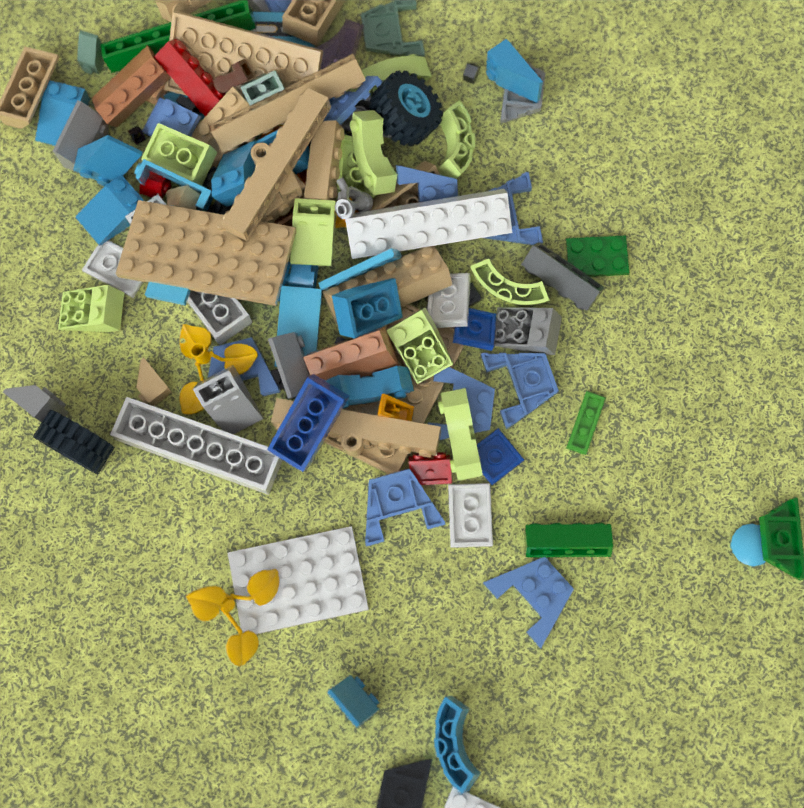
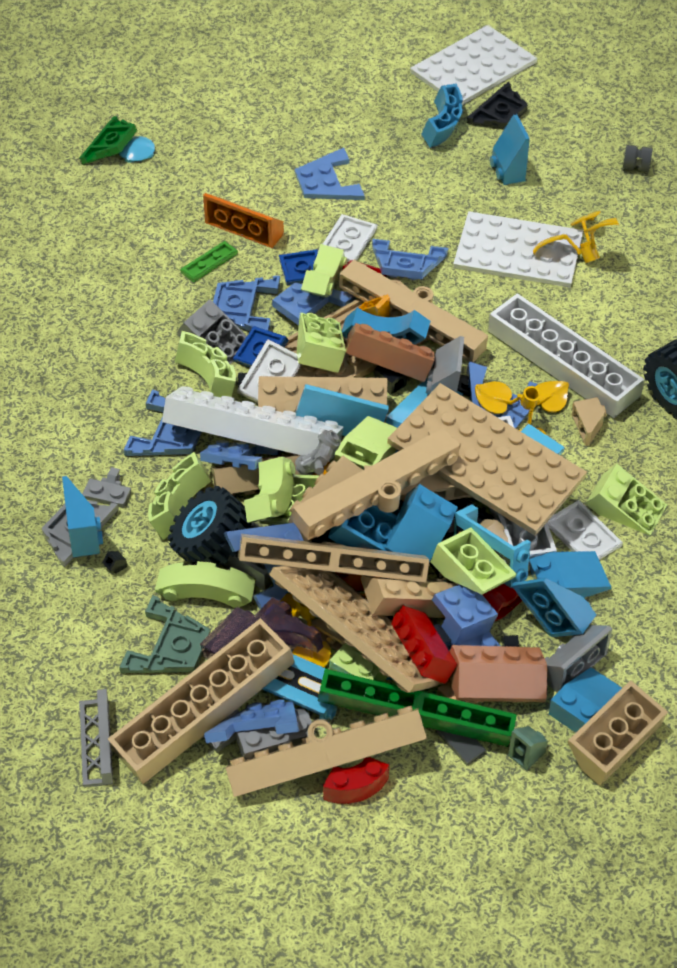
camera: 160 degrees left, 25 degrees down
(220, 776) = (631, 155): none -> dark grey wheel
(228, 401) = (522, 370): light grey slope -> none
(233, 79) = (377, 613): reddish brown leg -> none
(262, 87) = (353, 582): sand green slope -> none
(308, 422) = (455, 303): blue brick -> none
(367, 307) = (361, 365): dark azure slope -> none
(519, 135) = (108, 490): none -> light grey hinge
(562, 276) = (154, 355): dark grey brick -> none
(568, 540) = (279, 191): green brick -> none
(581, 482) = (242, 221): none -> orange slope
(599, 255) = (109, 367): green plate -> none

